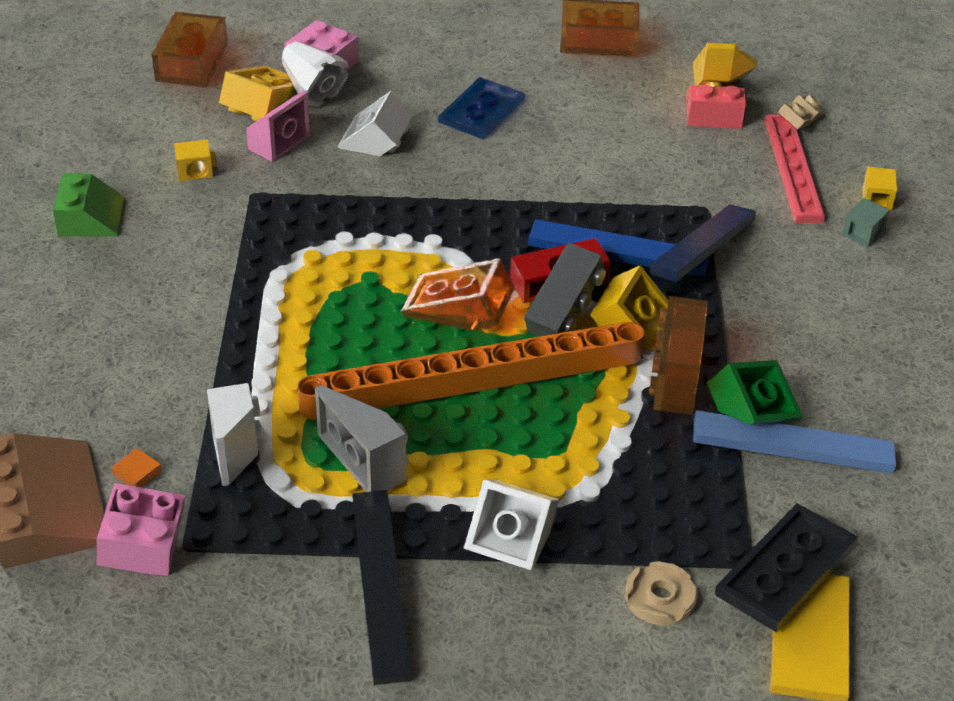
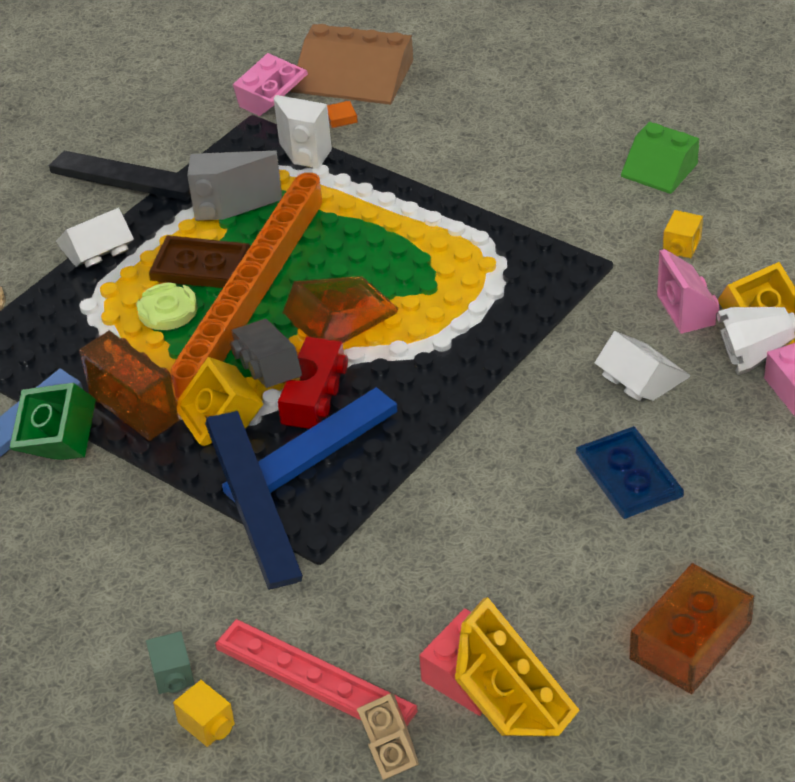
camera: 130 degrees right, 0 degrees up
(469, 434) = (197, 261): none -> reddish brown tile
(546, 422) = (166, 306): none -> yellowish green tile

